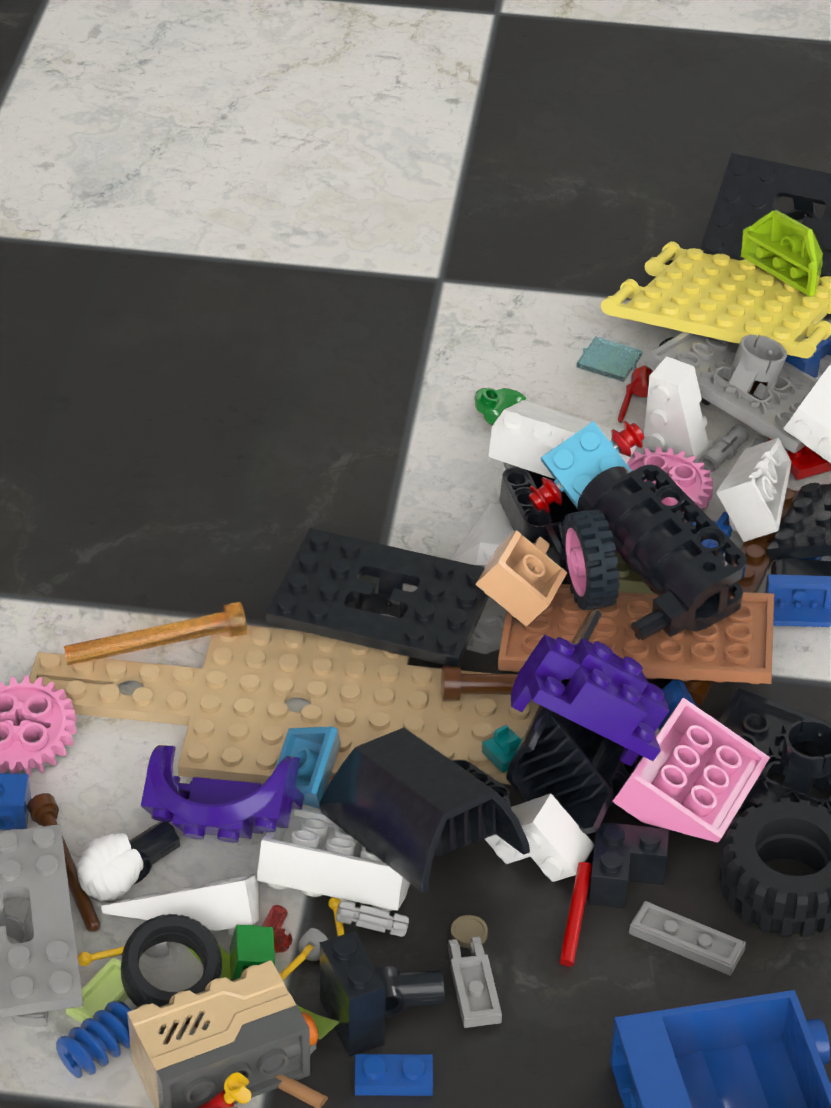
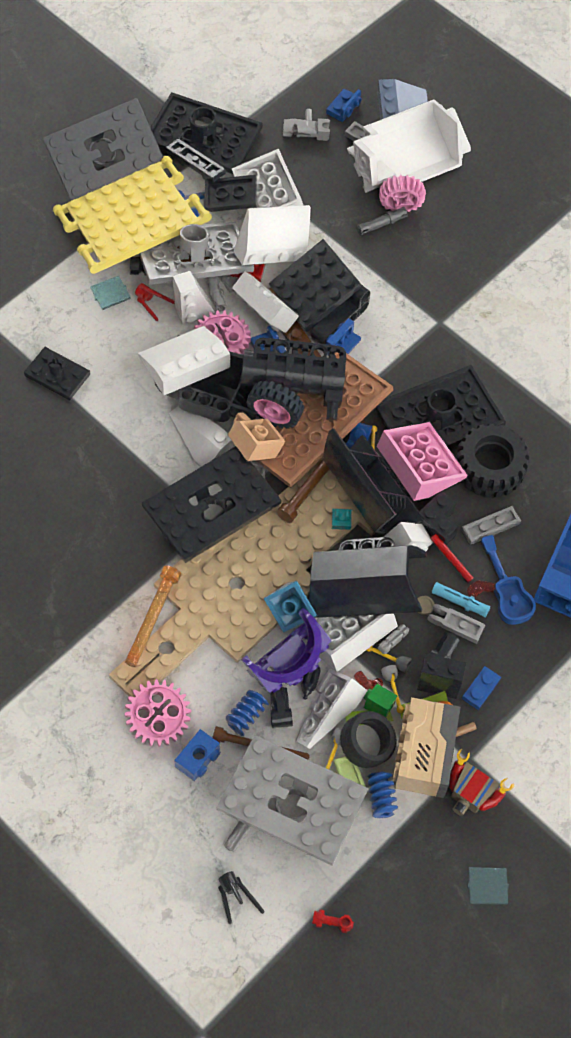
camera: 55 degrees left, 20 degrees up
(99, 815) = (245, 710): none -> blue piece
(109, 867) = (286, 729): white hair -> none
(219, 863) = (310, 682): none -> black piece
(435, 376) = (57, 373): none -> black plate
(493, 402) = (106, 361): green plate -> none
(521, 976) = (468, 603): none -> medium azure pin
(562, 977) = (478, 587): none -> clear red arm
(580, 1034) = (514, 602): none -> blue piece
(581, 460) = (222, 363): medium azure plate -> none
(603, 693) = (387, 460): dark purple piece -> none
(784, 250) = (126, 171): lime wedge -> none

